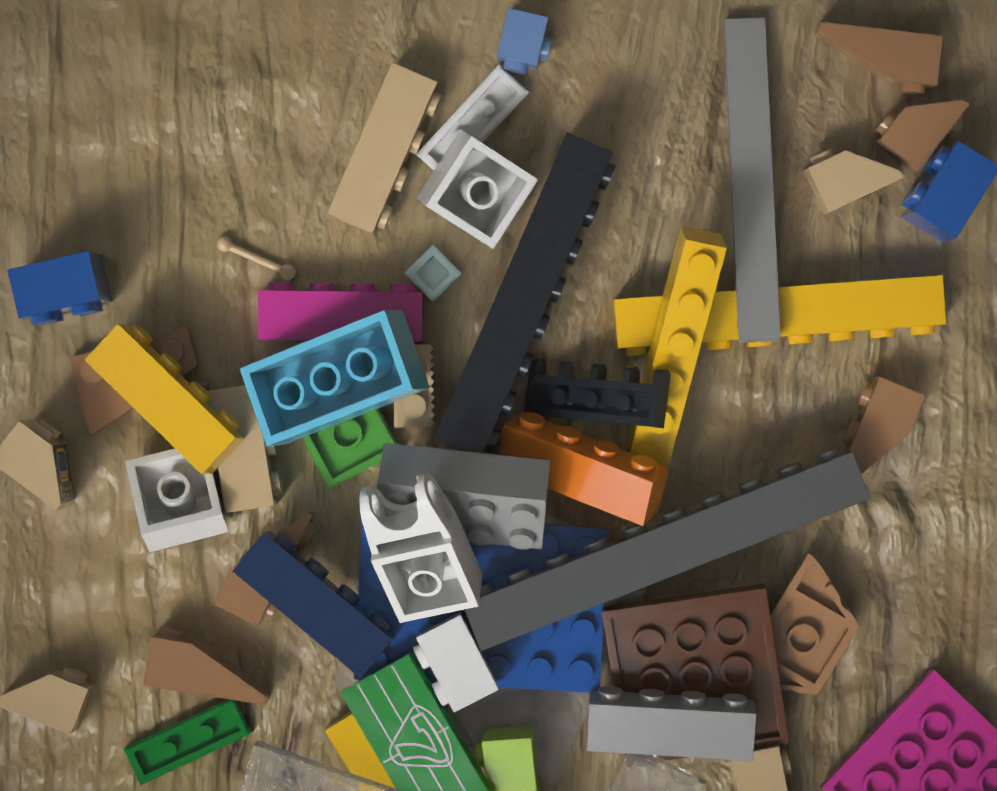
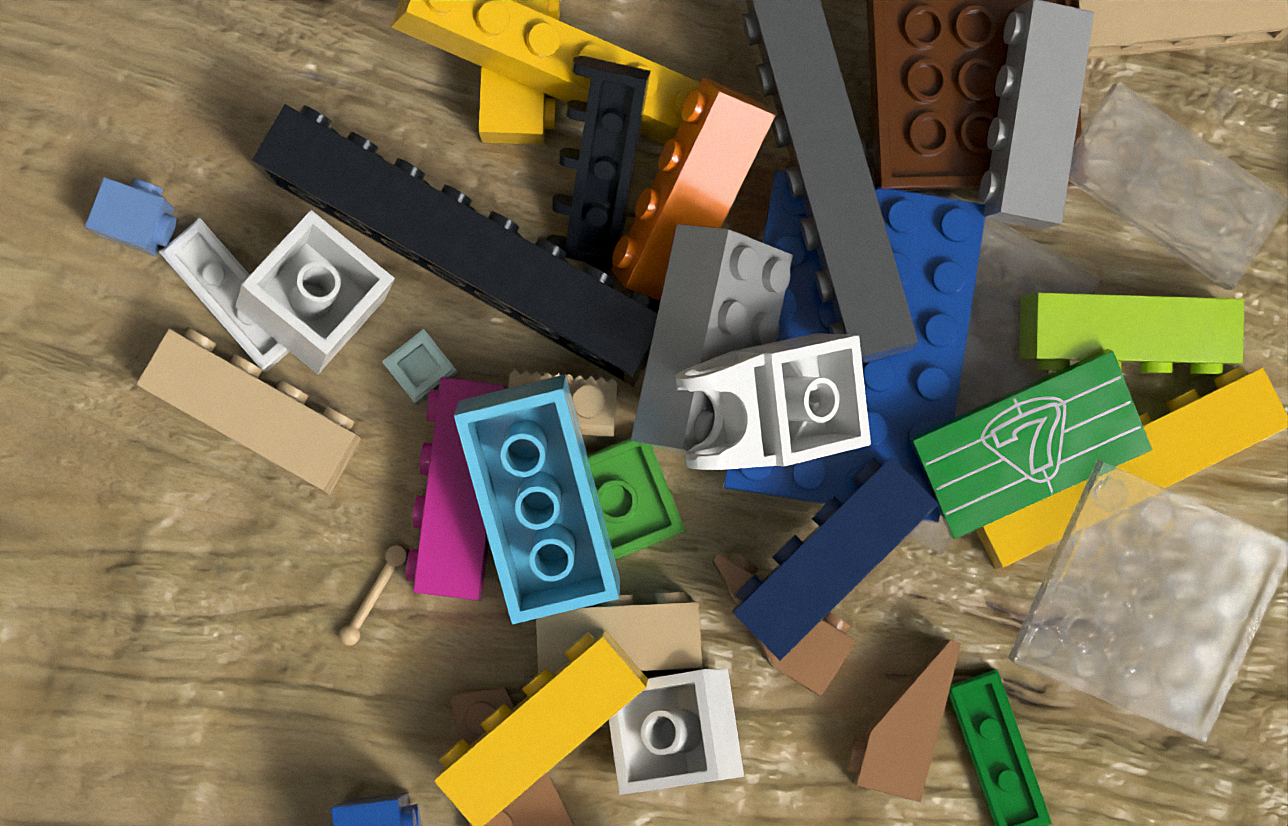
camera: 85 degrees left, 5 degrees down
(456, 663) = (930, 379): white brick -> none

